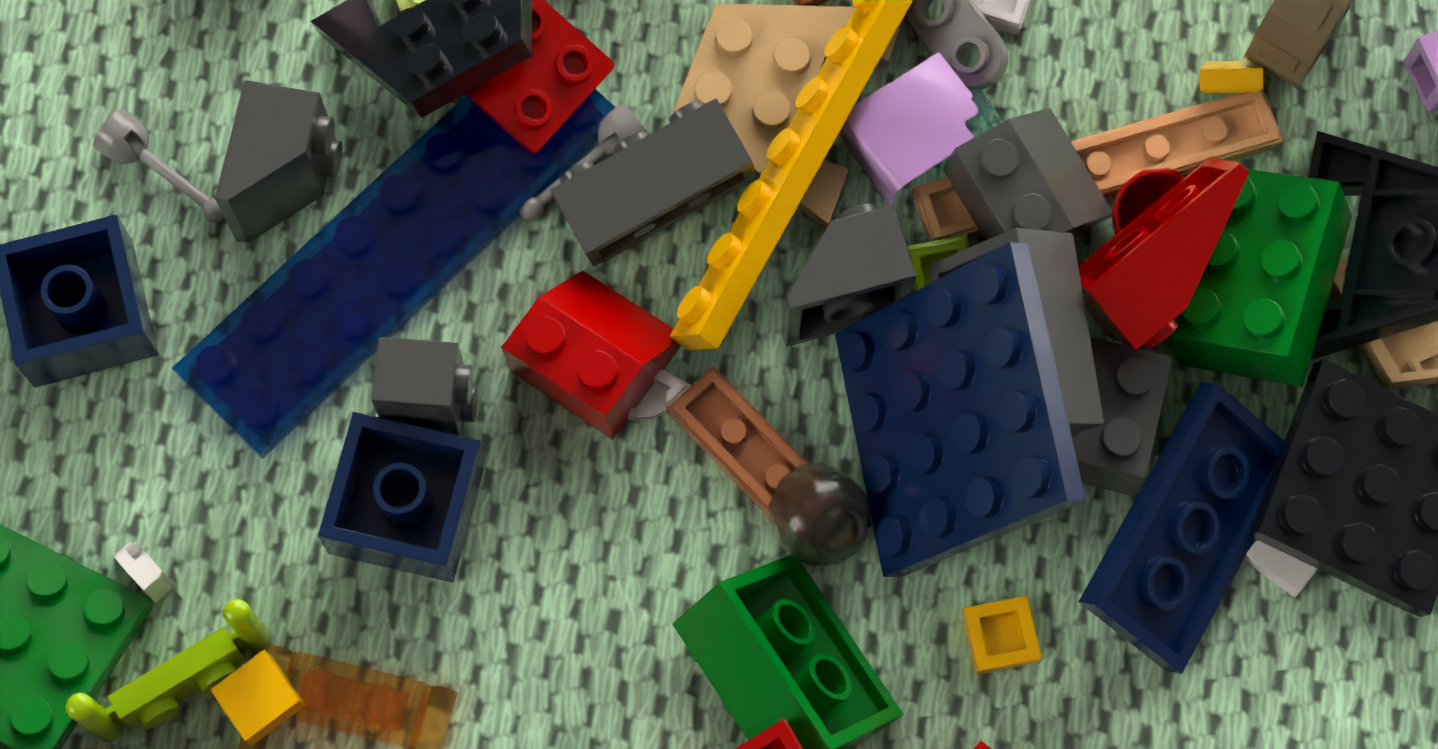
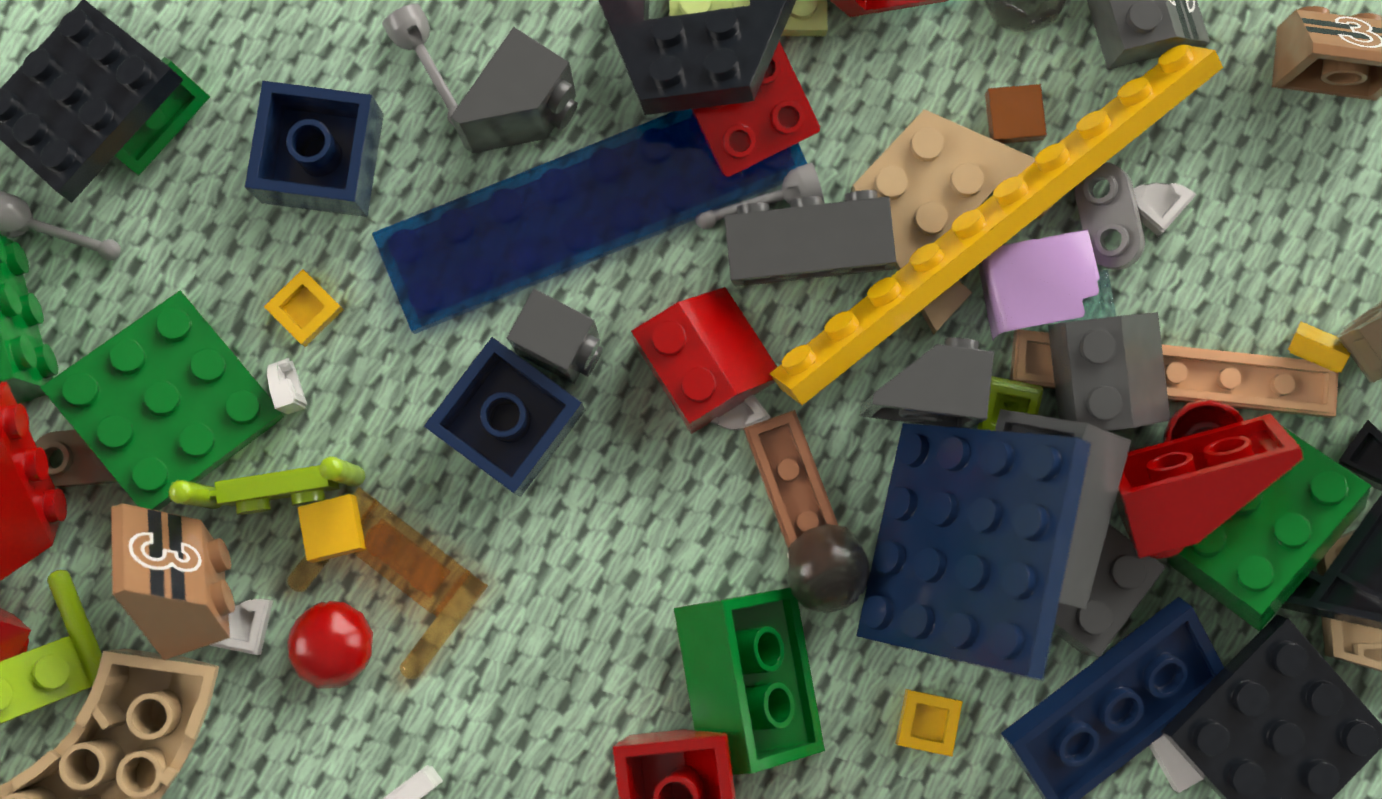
camera: 20 degrees right, 10 degrees up
(127, 479) = (303, 308): none -> yellow tile

